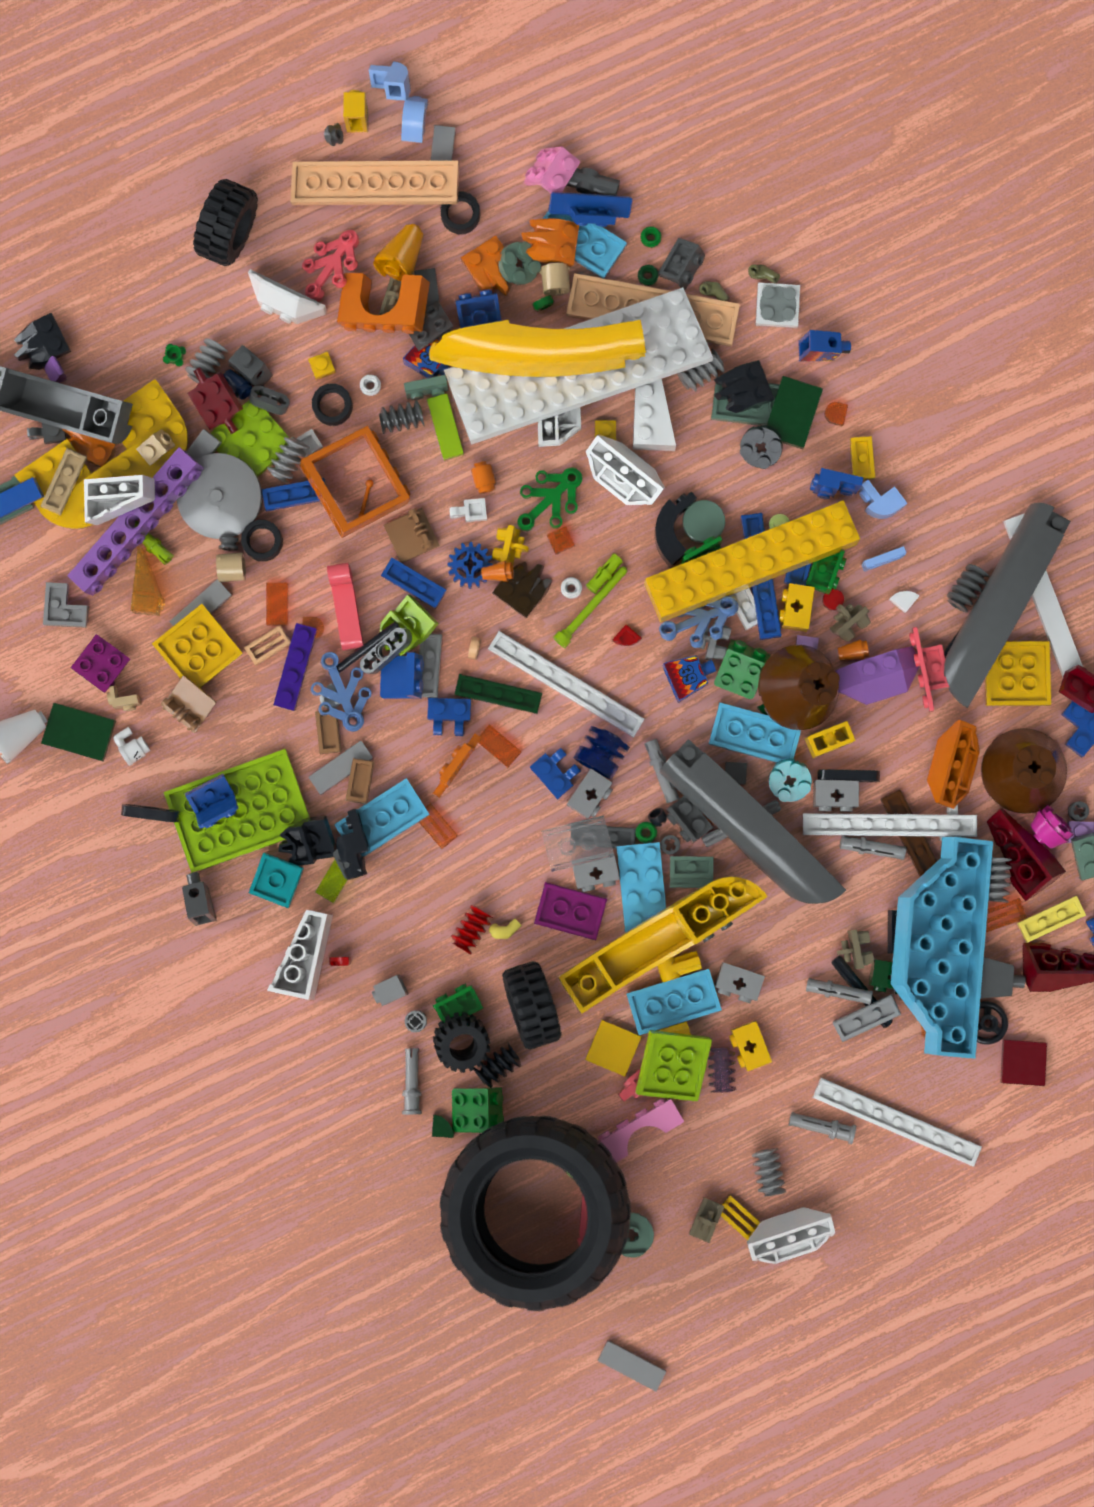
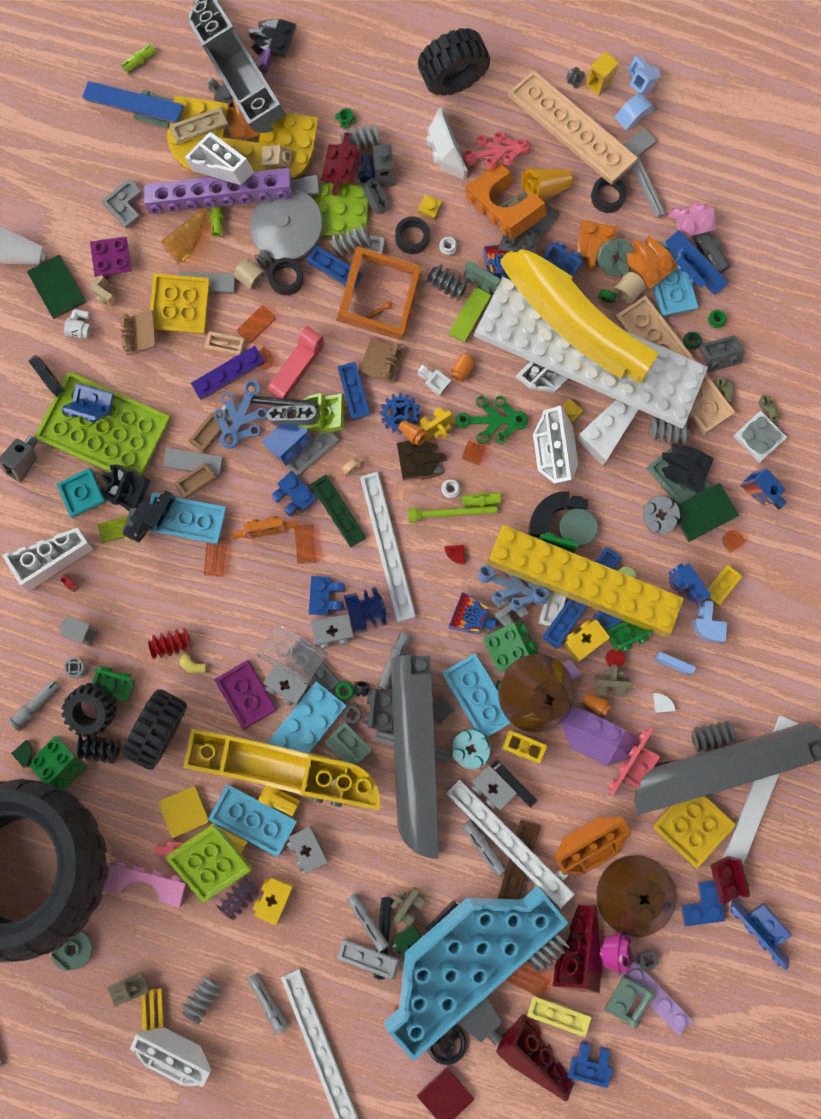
camera: 40 degrees right, 5 degrees down
(486, 175) = (647, 186): none -> light grey axle

